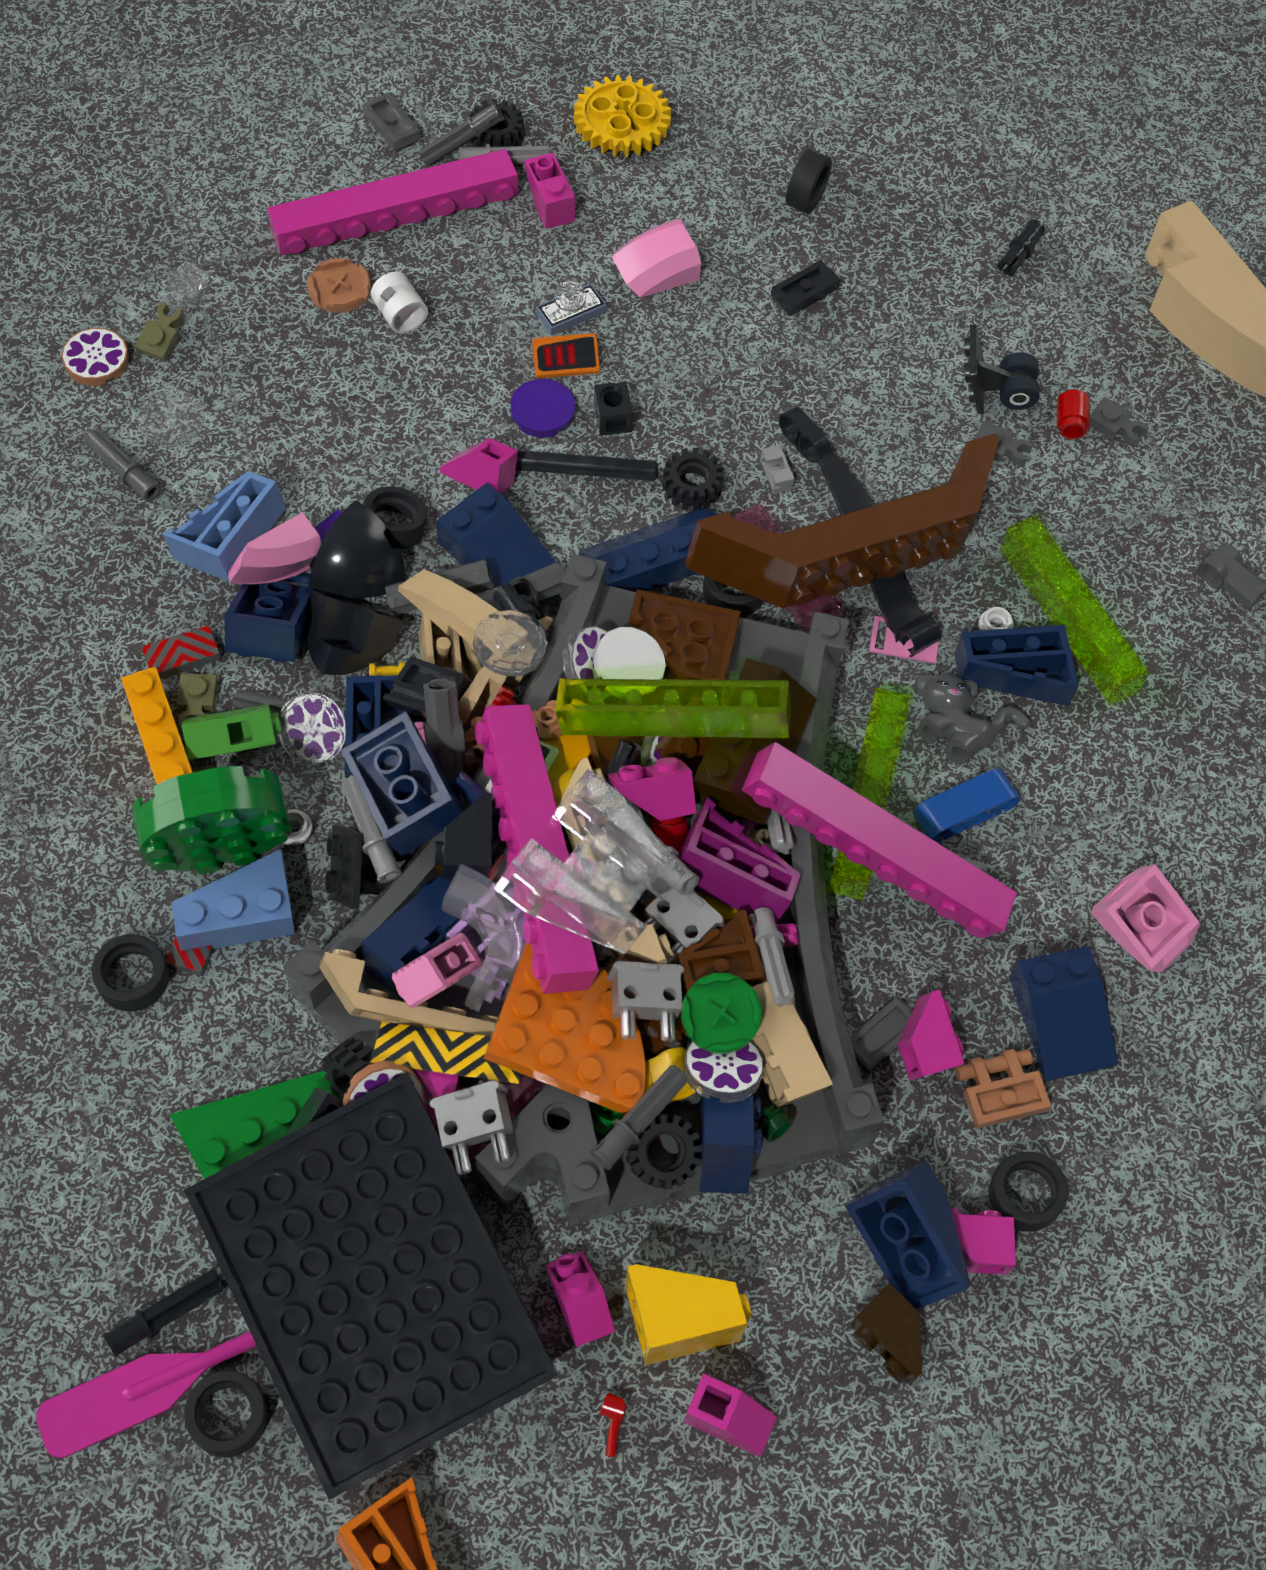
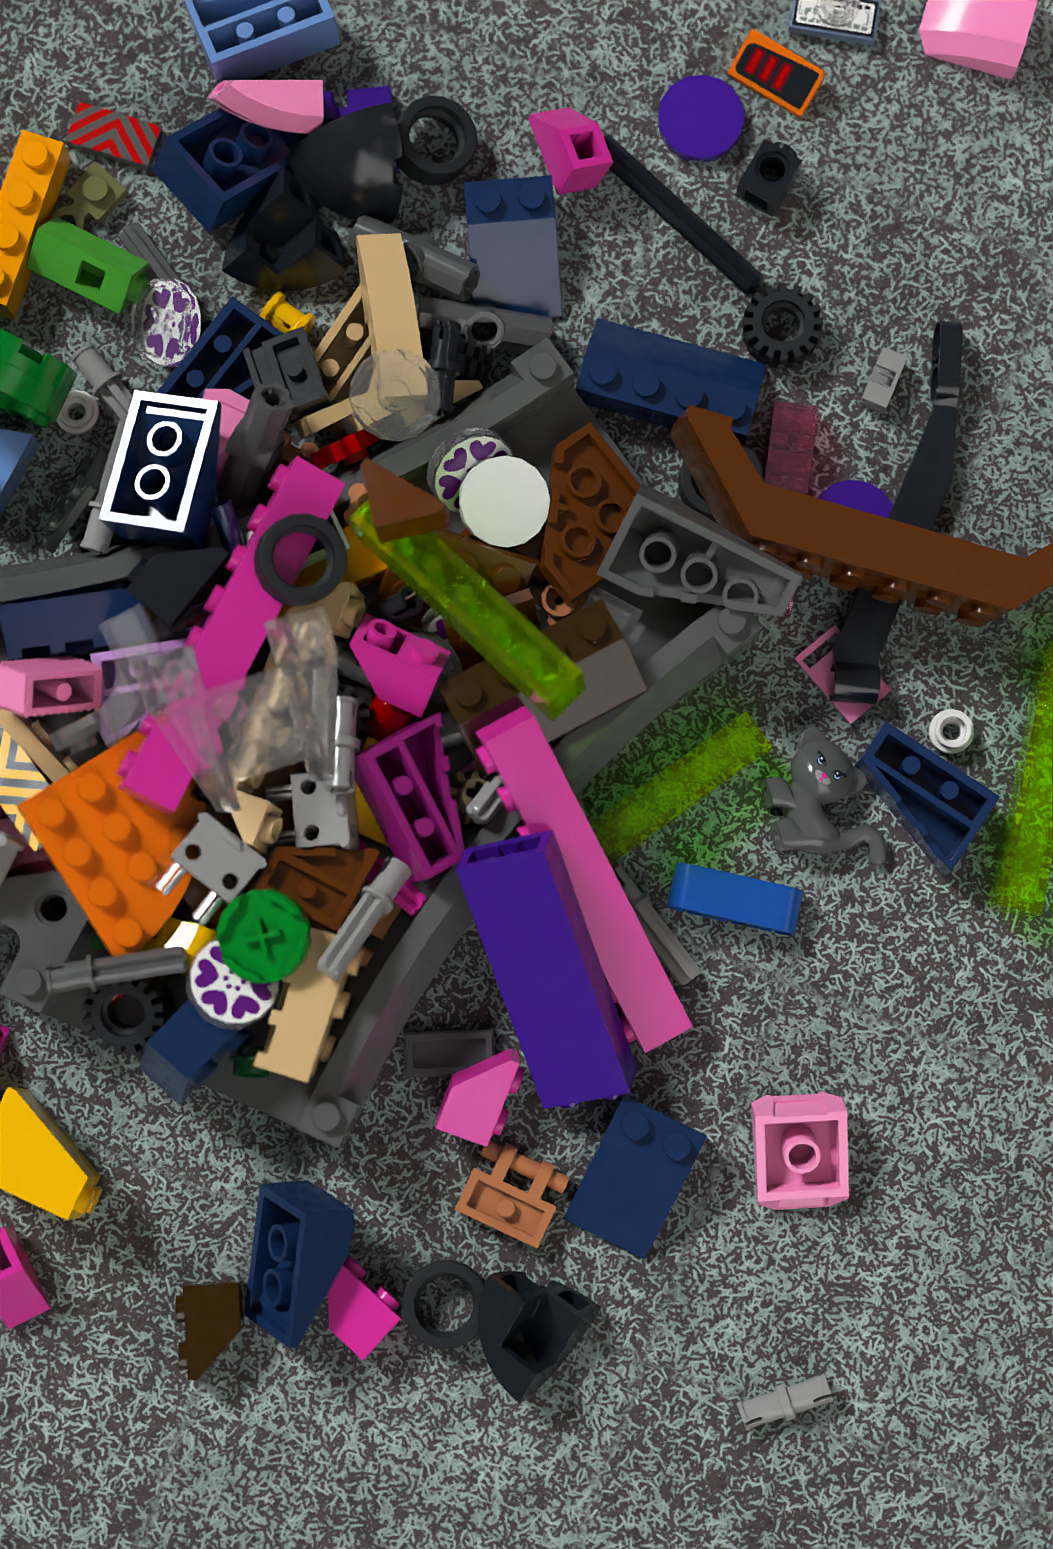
camera: 40 degrees right, 20 degrees up
(316, 800) = (103, 380): none -> light grey axle
(555, 739) = (325, 534): none -> black tyre
(583, 673) = (400, 507): none -> reddish brown slope
(766, 611) = (687, 557): none -> dark grey wedge
(909, 911) = (547, 969): none -> dark purple brick
(1095, 1160) = (529, 1329): none -> black brick

